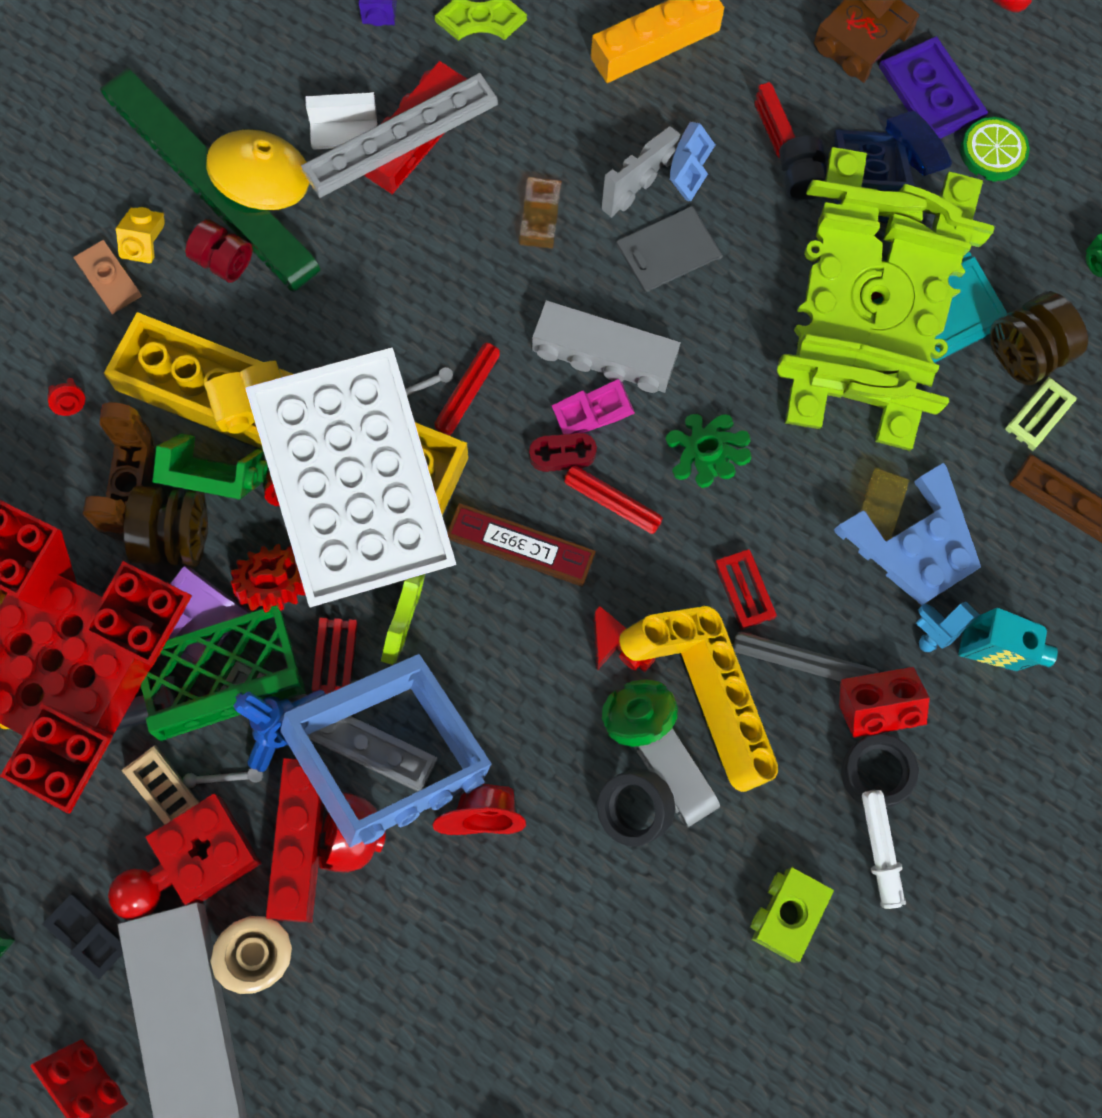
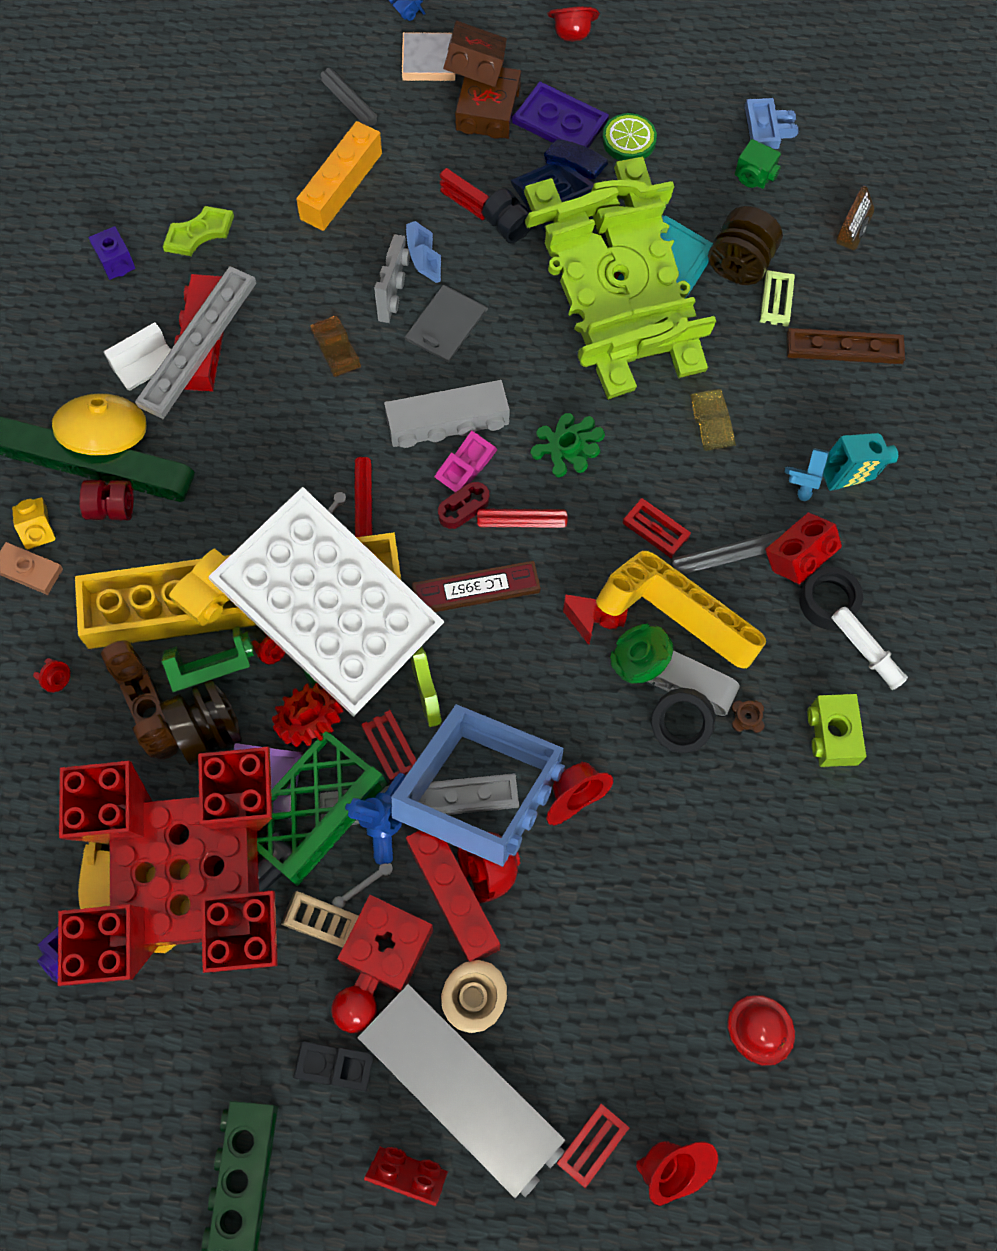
camera: 30 degrees left, 5 degrees down
(699, 845) = (754, 709): none -> reddish brown plate
(929, 553) = (766, 432): medium blue wing -> none

